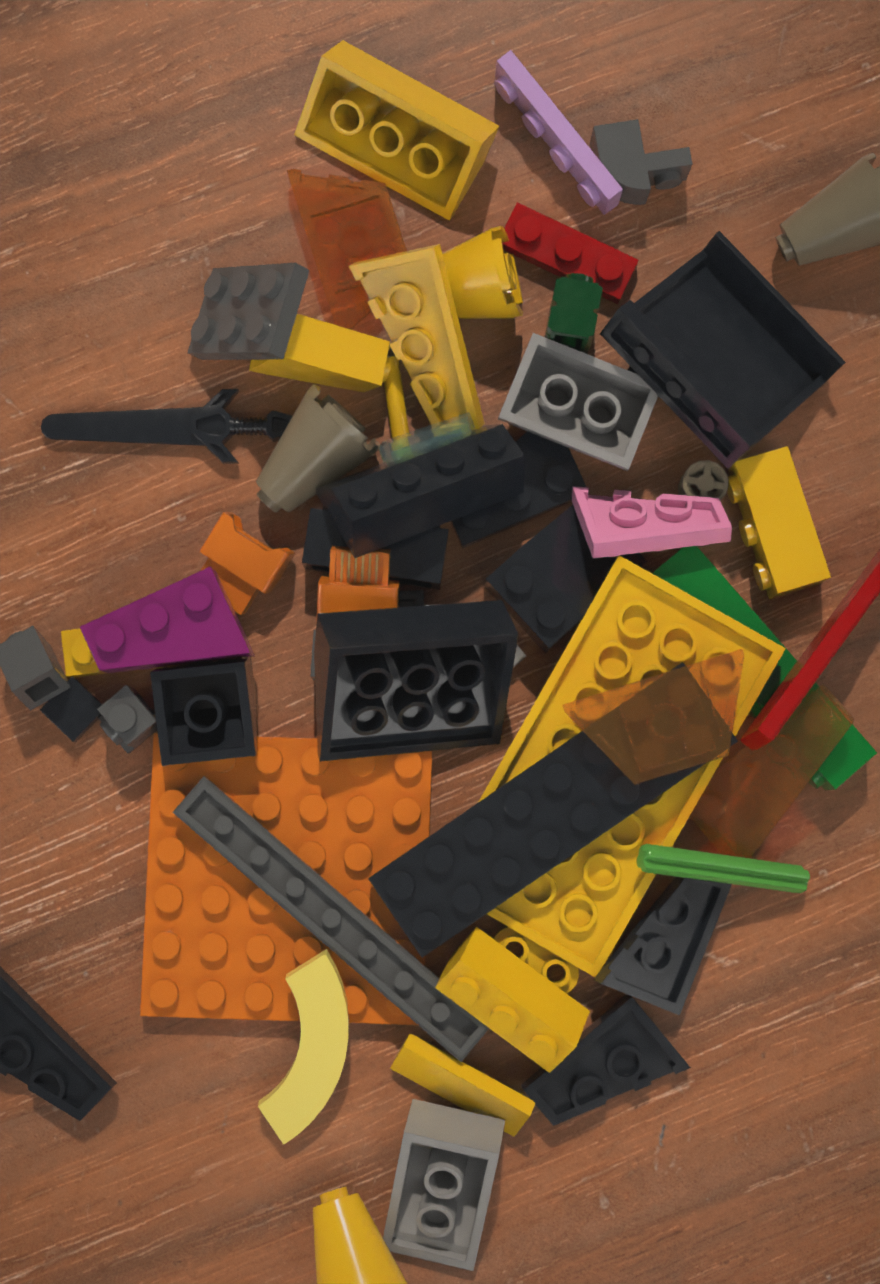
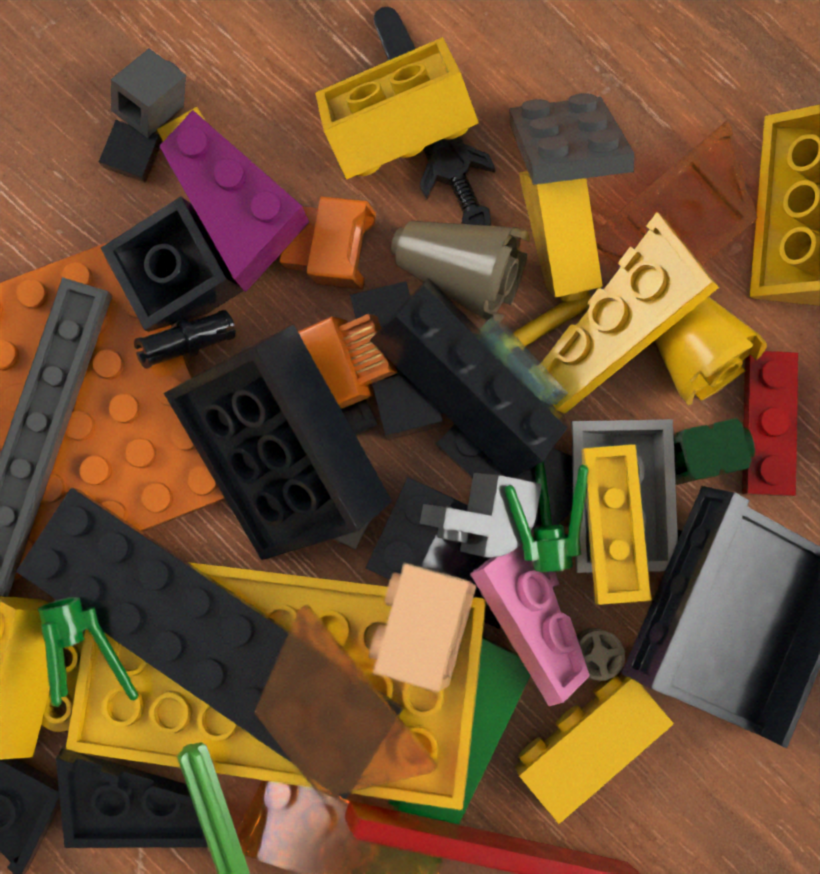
camera: 75 degrees right, 0 degrees up
(127, 719) = (134, 195): dark grey brick -> none
(145, 451) = (395, 109): none -> yellow slope
(275, 726) = (184, 338): none -> black pin
(491, 927) = (63, 627): none -> green plant
(551, 516) = (488, 523): none -> brick
(596, 481) = (550, 547): none -> green plant
(602, 418) = (616, 525): none -> yellow plate
(622, 608) = (422, 627): none -> light nougat brick

